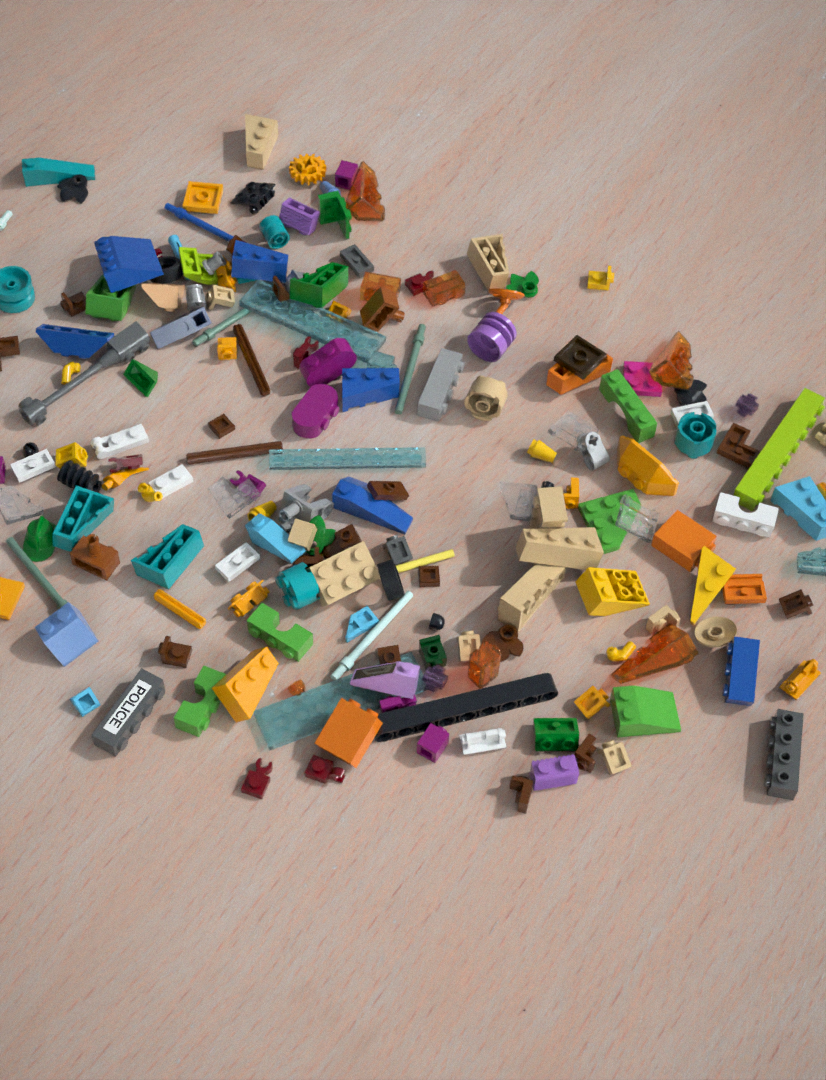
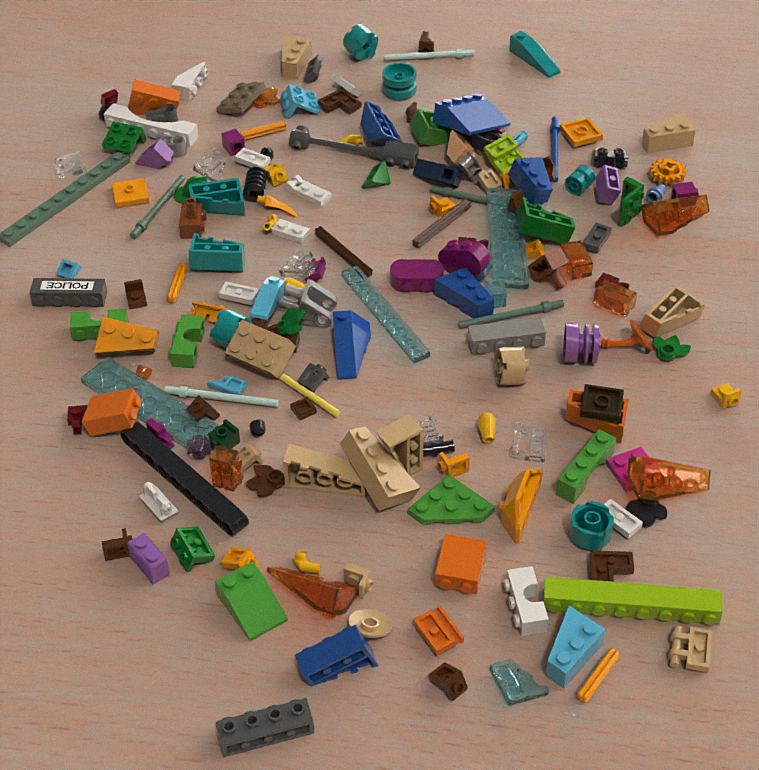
camera: 65 degrees right, 10 degrees down
(66, 633) = (114, 231): medium blue slope -> none
(71, 189) = (527, 70): black plate -> none
(131, 462) = (291, 202): dark red plate -> none
(214, 263) = (507, 158): light grey bush -> none
(221, 426) = (364, 235): reddish brown tile -> none
(257, 782) = (48, 385): dark red plate -> none
(302, 534) = (278, 309): tan panel -> none
(348, 537) = (304, 344): reddish brown bracket -> none
(387, 490) = (366, 346): reddish brown plate -> none
(390, 579) = (265, 374): black tyre -> none
(390, 678) = (174, 415): lavender slope -> none
(433, 742) = (136, 470): magenta brick -> none
(584, 754) = (181, 572): reddish brown bracket -> none
(593, 451) = (511, 460): light grey piece -> none
(611, 591) = (367, 532): yellow slope -> none
(614, 756) = (189, 596): tan bracket -> none
(634, 522) = (451, 516): clear plate -> none
(712, 576) = (426, 595): yellow wing -> none
(747, 405) = (664, 555): clear purple gear -> none
(801, 678) = (362, 714): light orange hinge -> none

